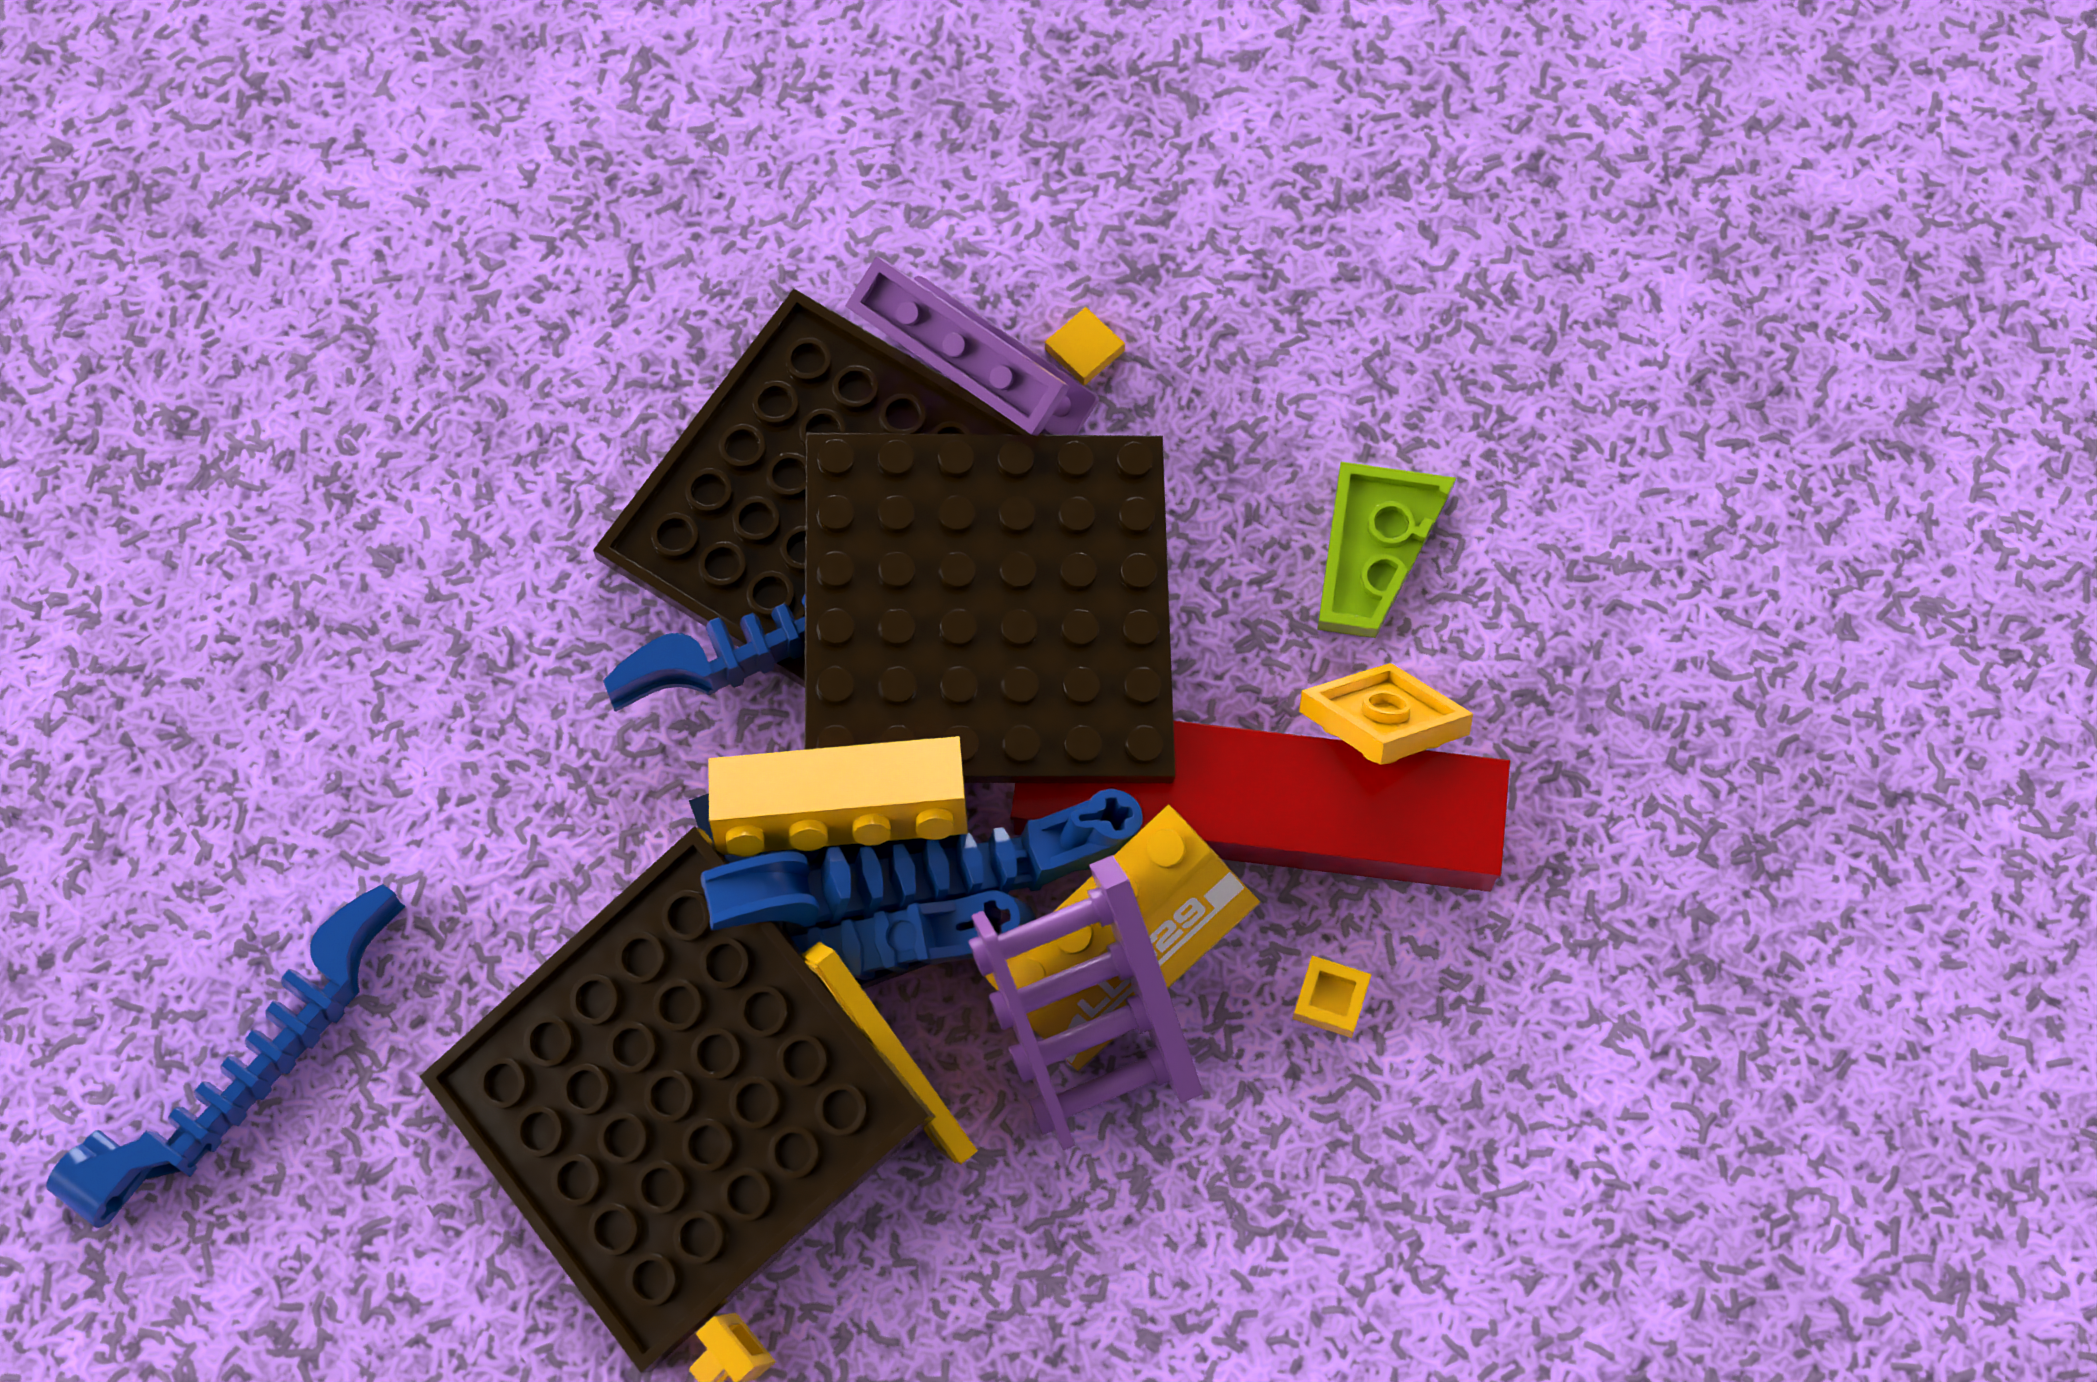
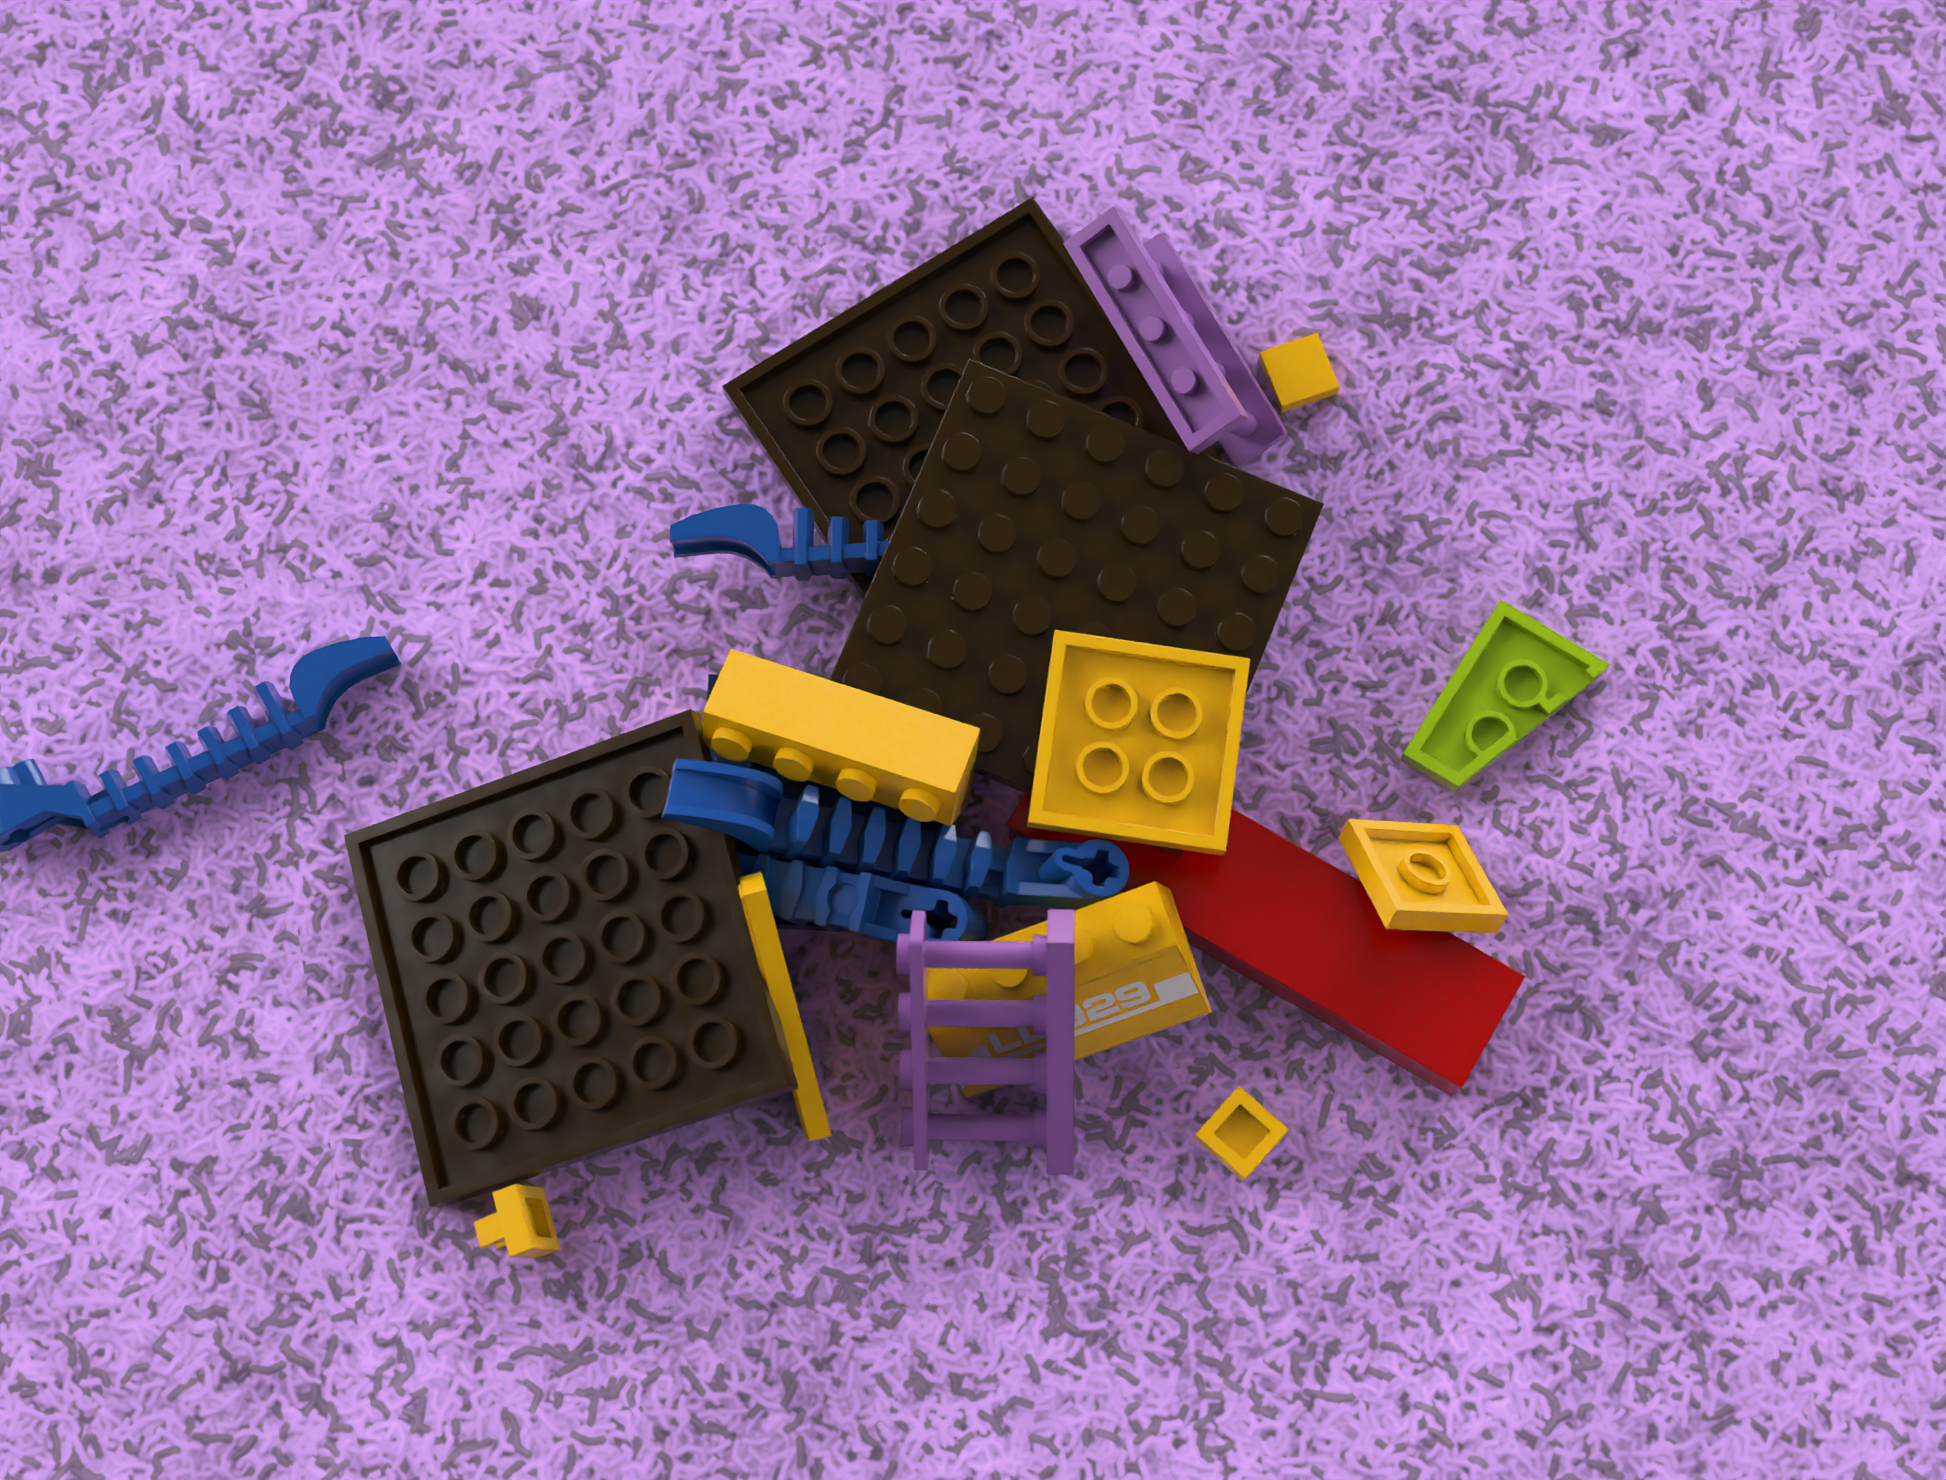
camera: 25 degrees right, 5 degrees up
(1099, 695) = (1139, 742): none -> yellow plate

